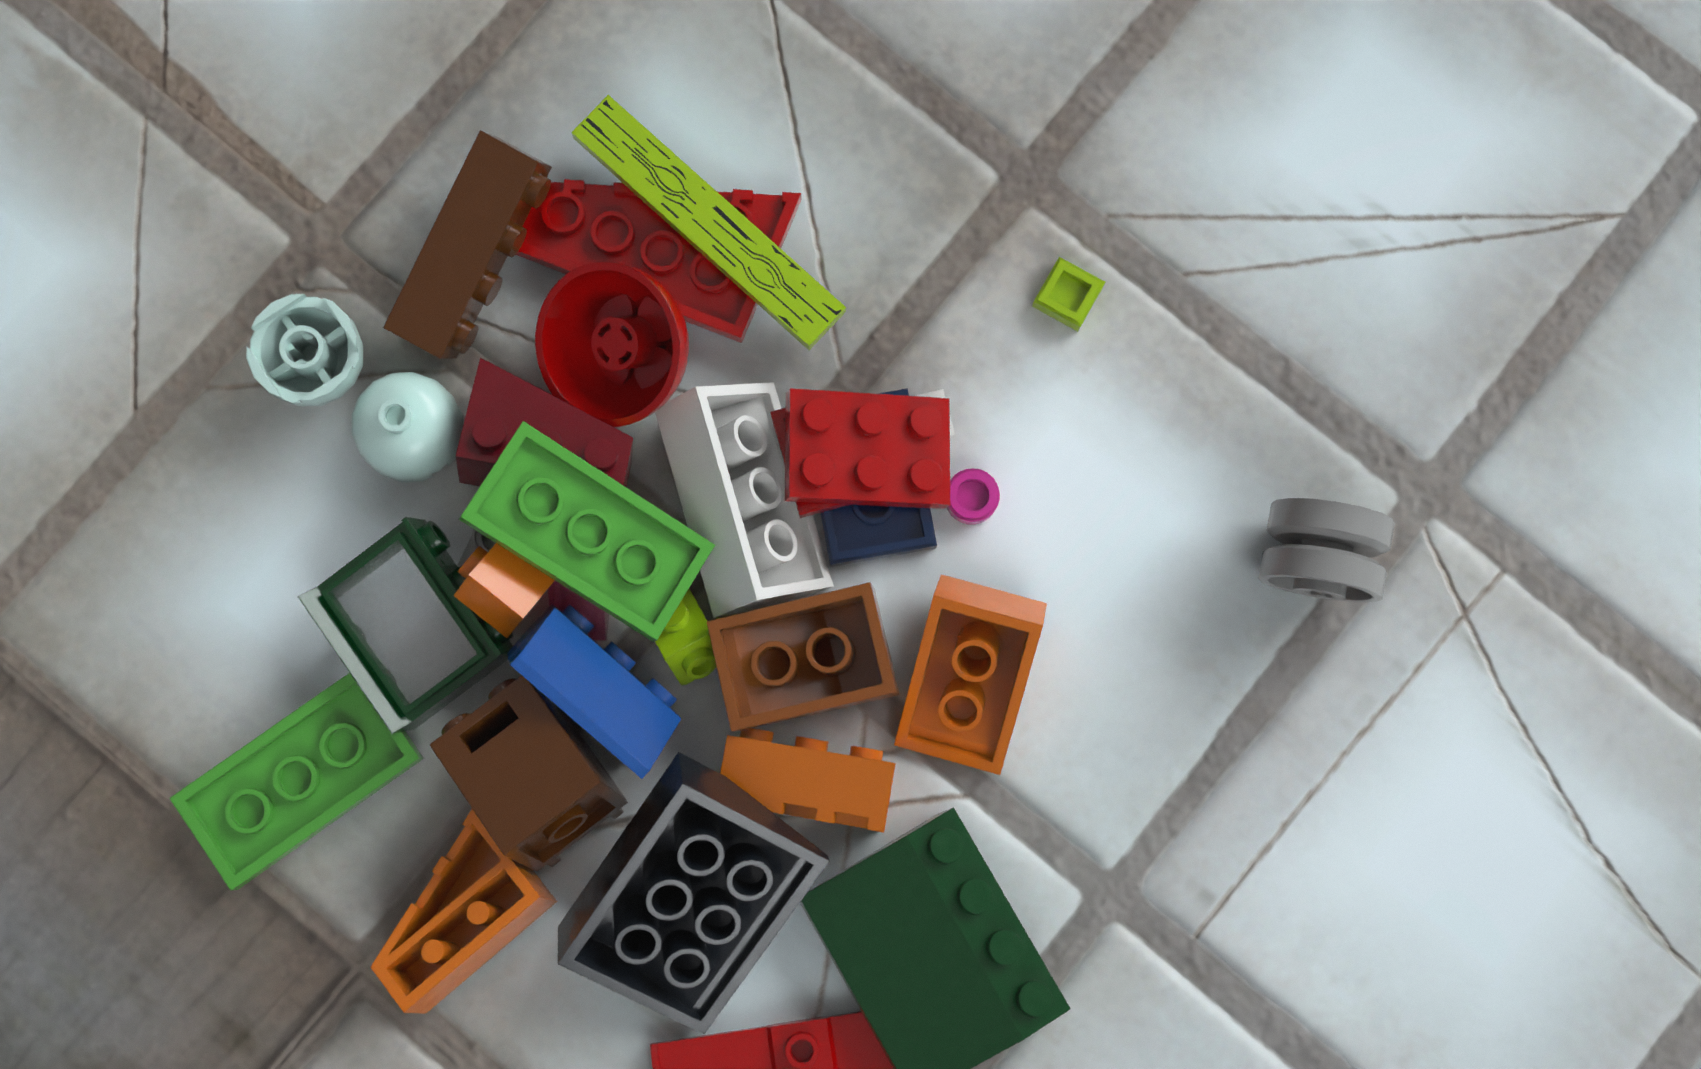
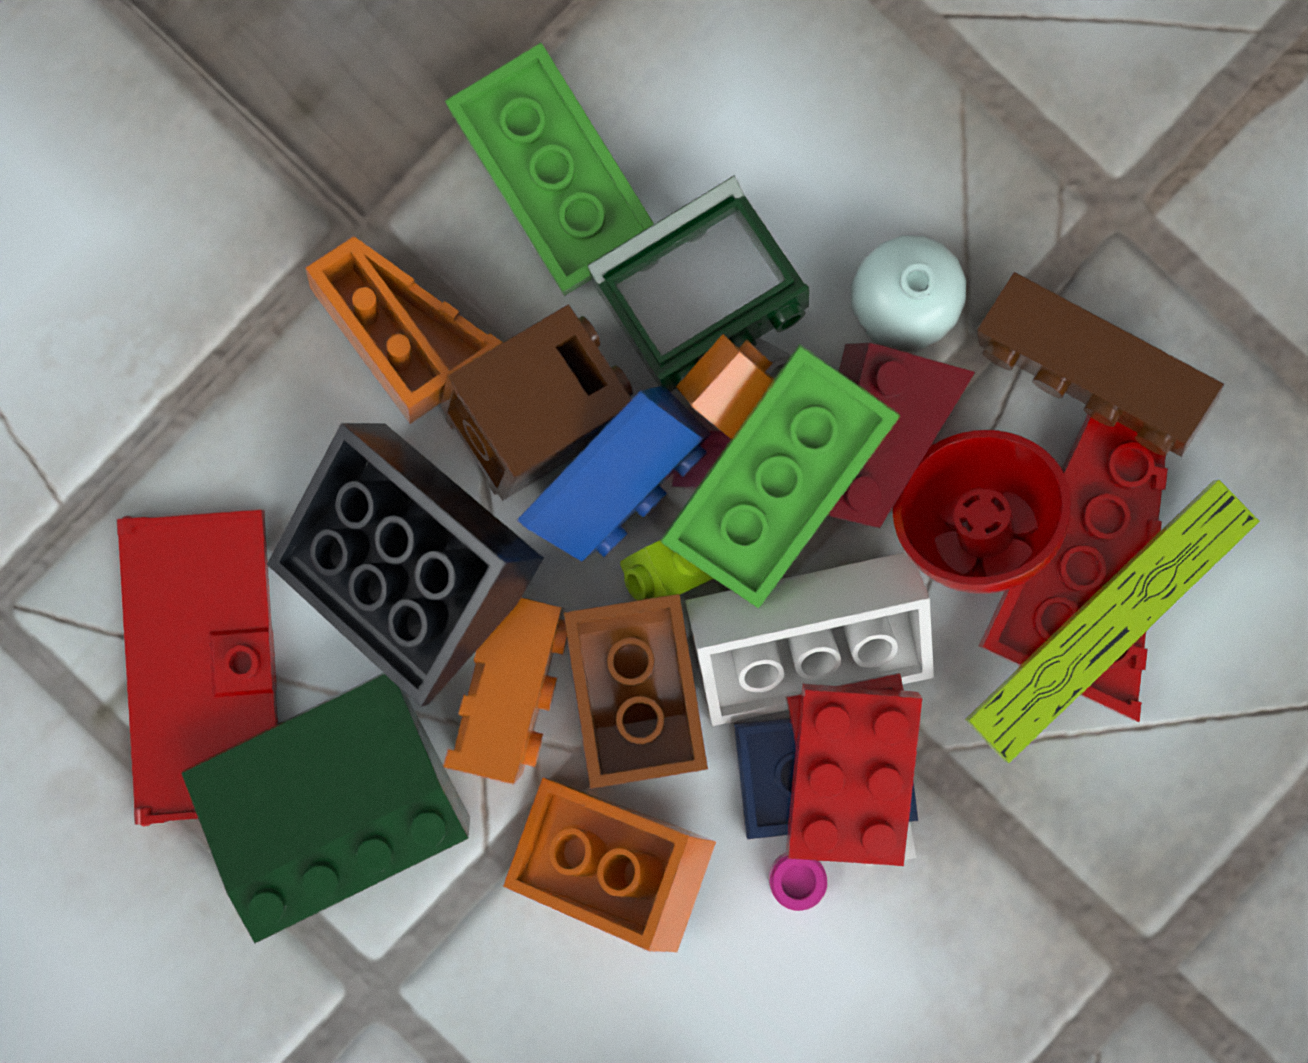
camera: 100 degrees right, 5 degrees up
(305, 350) = (994, 190): light aqua cylinder -> none
(1068, 294) = (1012, 1003): lime tile -> none

